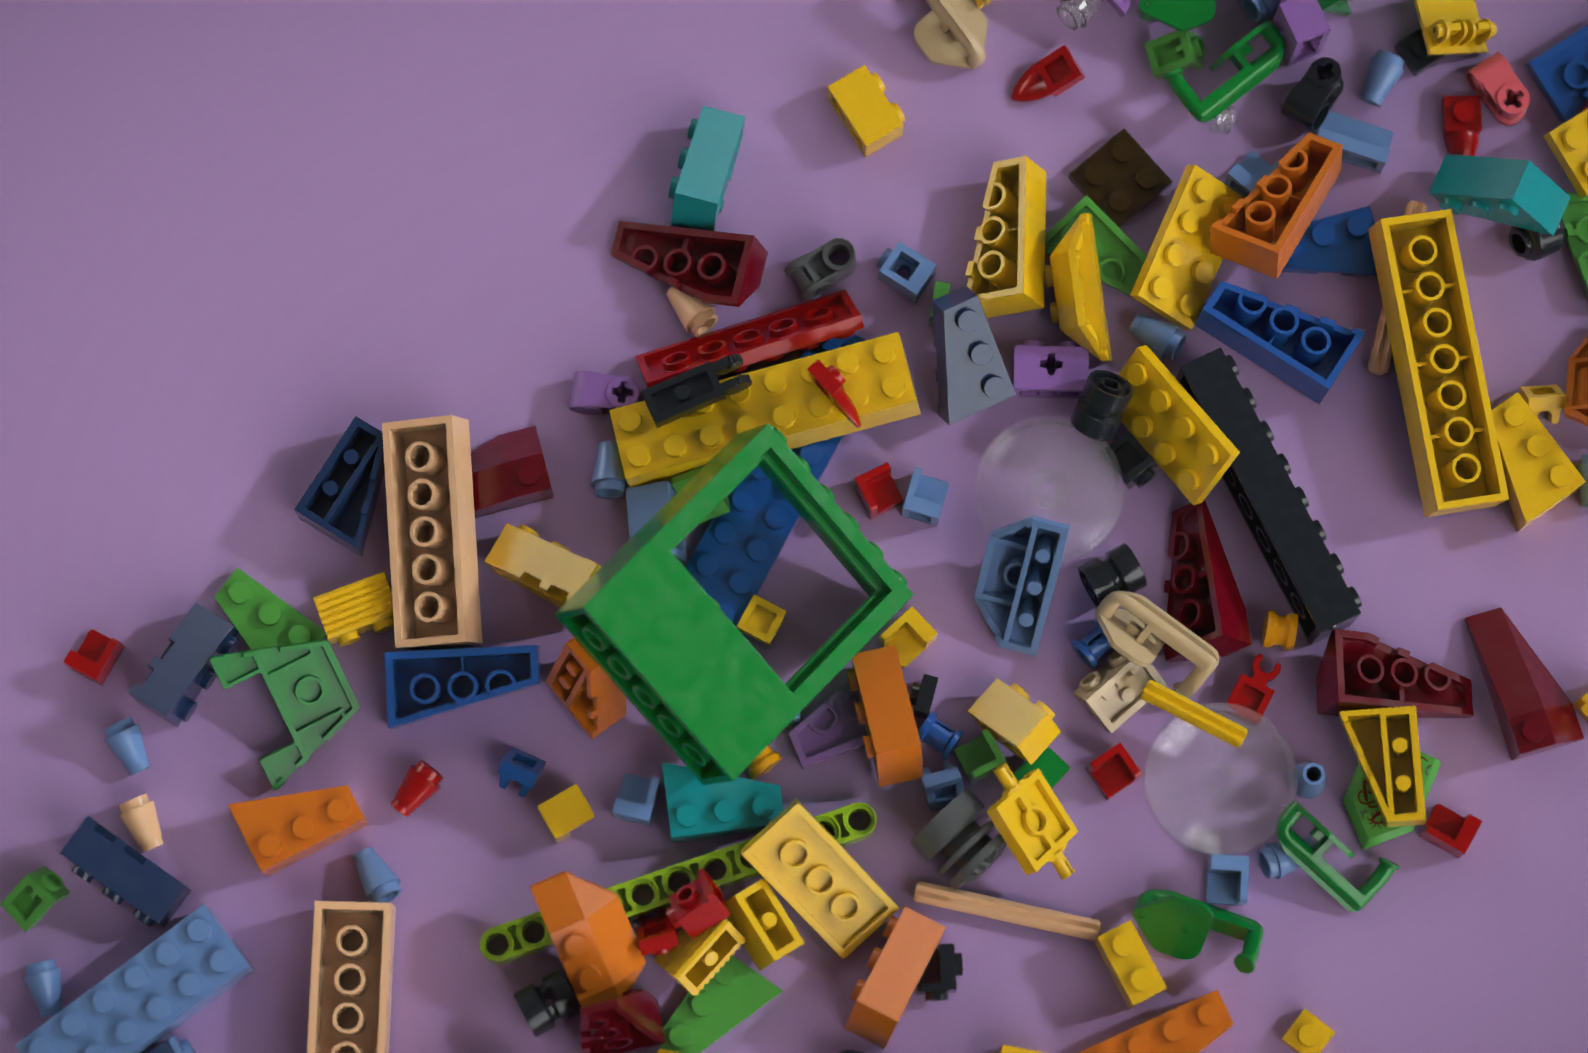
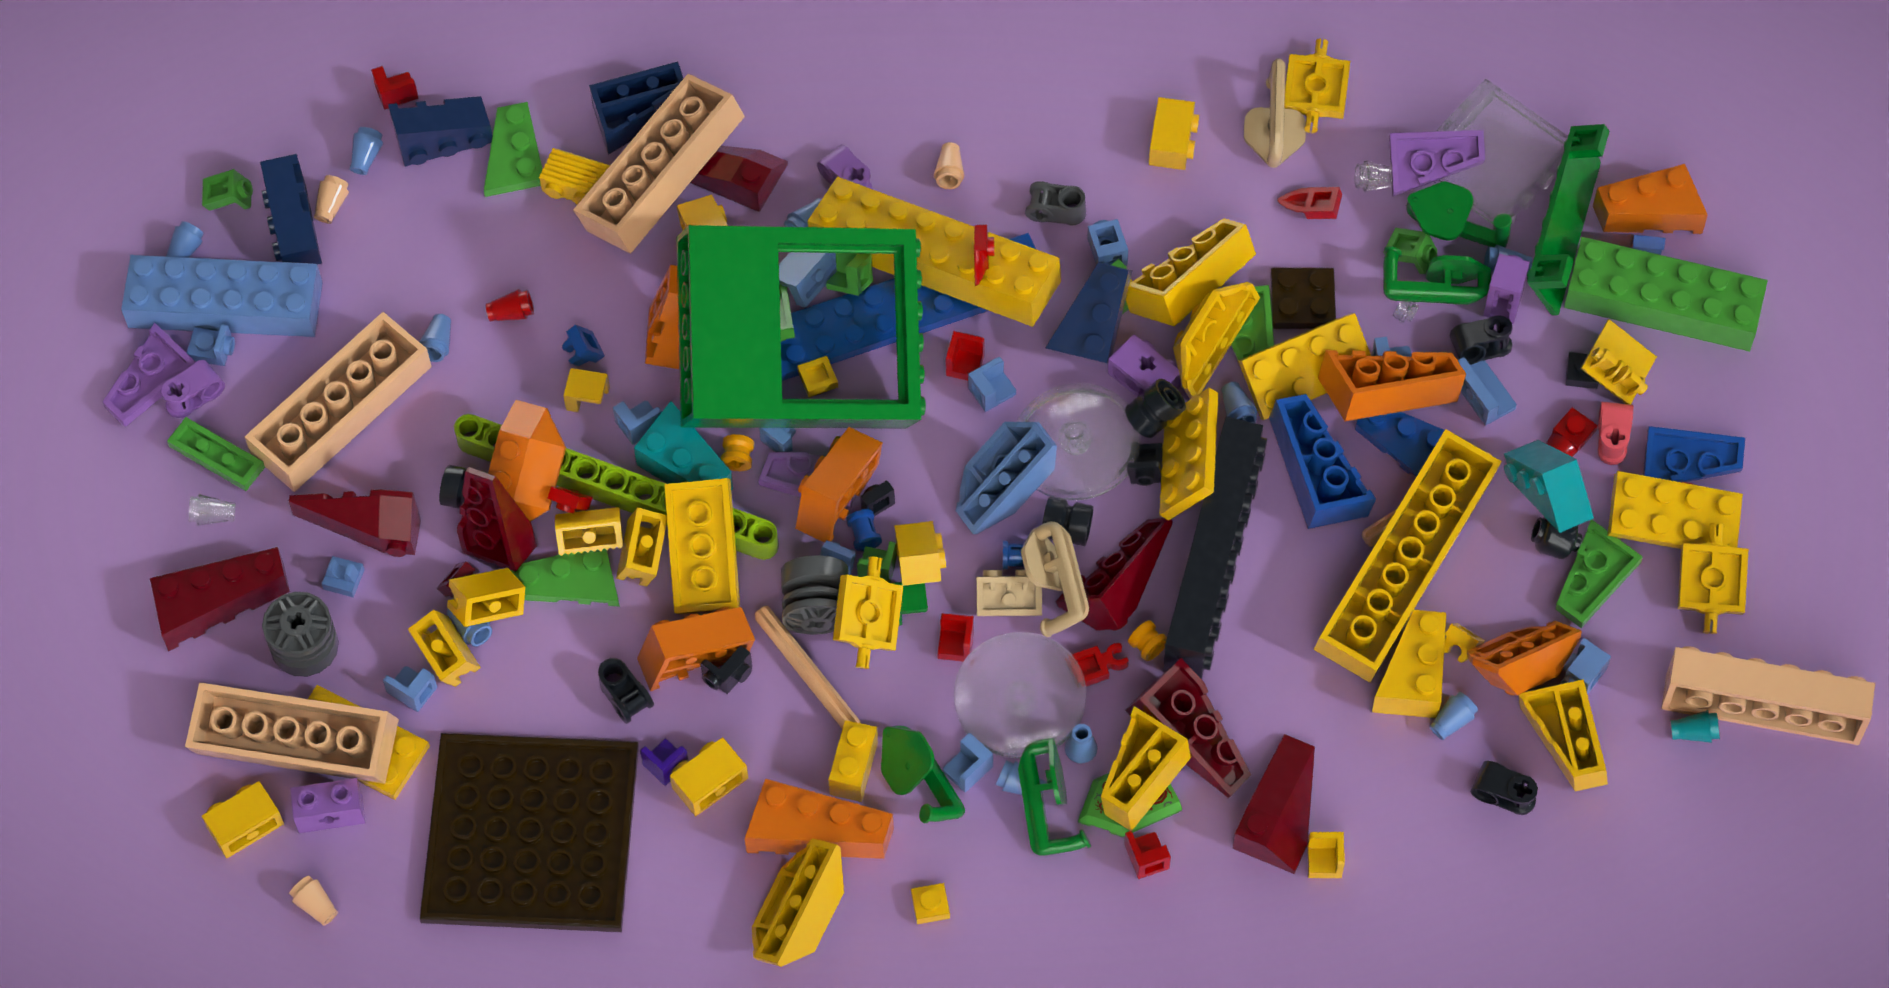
camera: 45 degrees right, 15 degrees down
(297, 824) = (418, 270): orange wedge -> none
(307, 691) = (498, 198): green wing -> none
(449, 679) = (592, 259): blue wedge -> none
(694, 390) = (898, 195): black hinge -> none
(697, 905) = (611, 497): red brick -> none
(701, 263) = (979, 138): dark red wedge -> none
(705, 168) = (1031, 91): teal wedge -> none
(758, 338) = (973, 210): red plate -> none
(910, 635) = (900, 457): yellow panel -> none
(1194, 713) = (1038, 636): yellow axle -> none
(1382, 75) = (1539, 364): medium blue cone -> none

